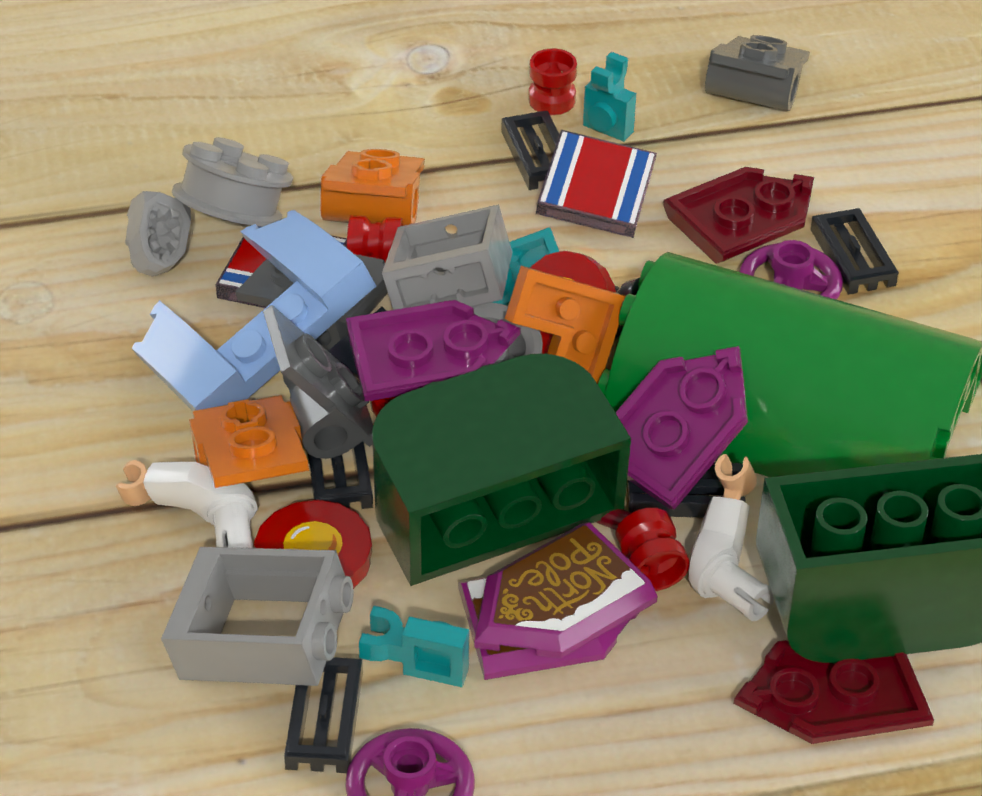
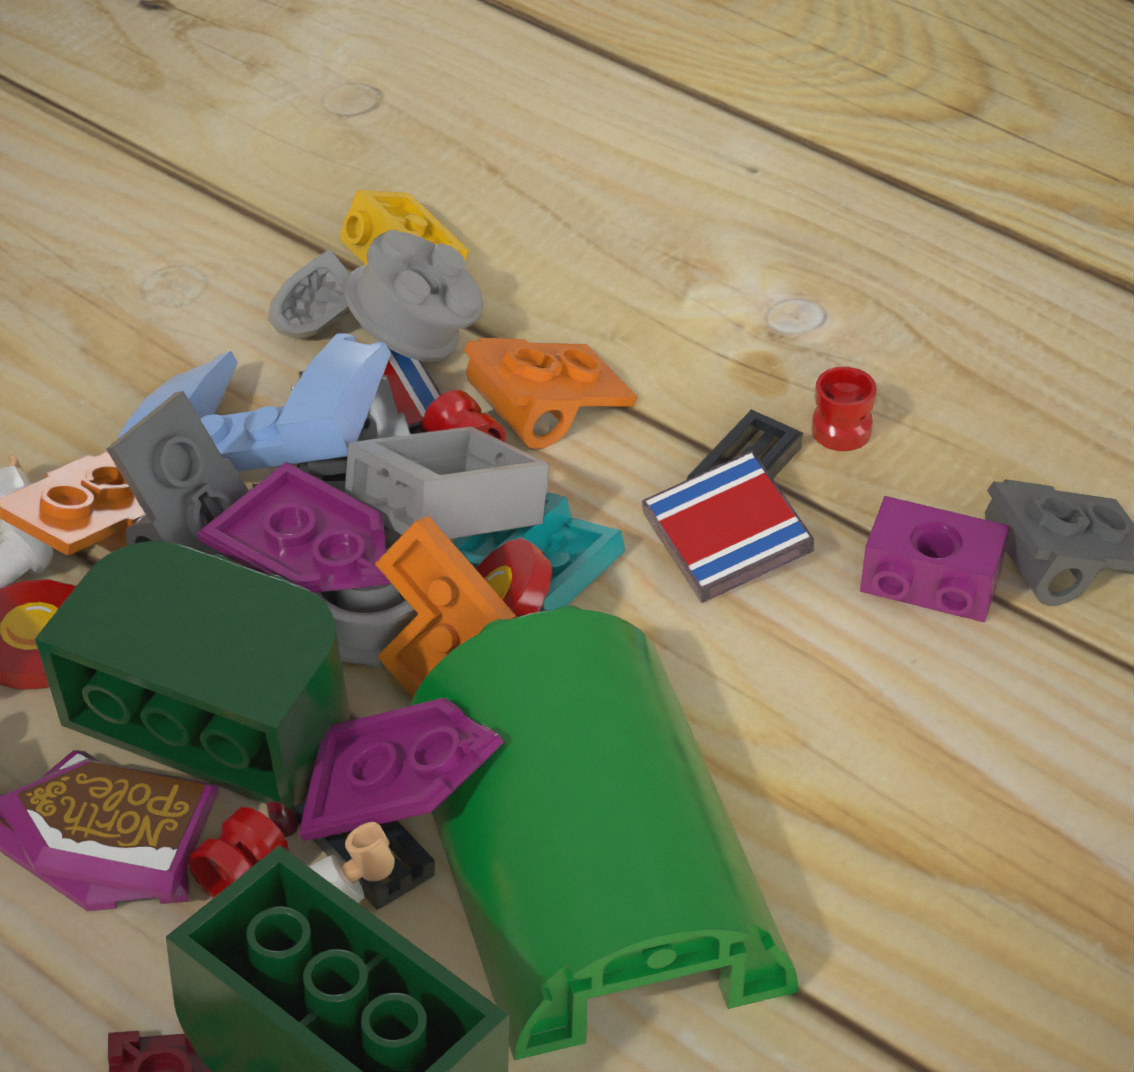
camera: 50 degrees right, 0 degrees up
(127, 167) = (382, 211): none -> yellow bracket
(607, 103) = (850, 466): teal plate -> none
(719, 122) = (934, 558): none -> magenta brick
(740, 211) = (831, 656): dark red tile -> none
(795, 265) = (767, 742): magenta piece -> none
(845, 250) = (849, 810): black tile -> none

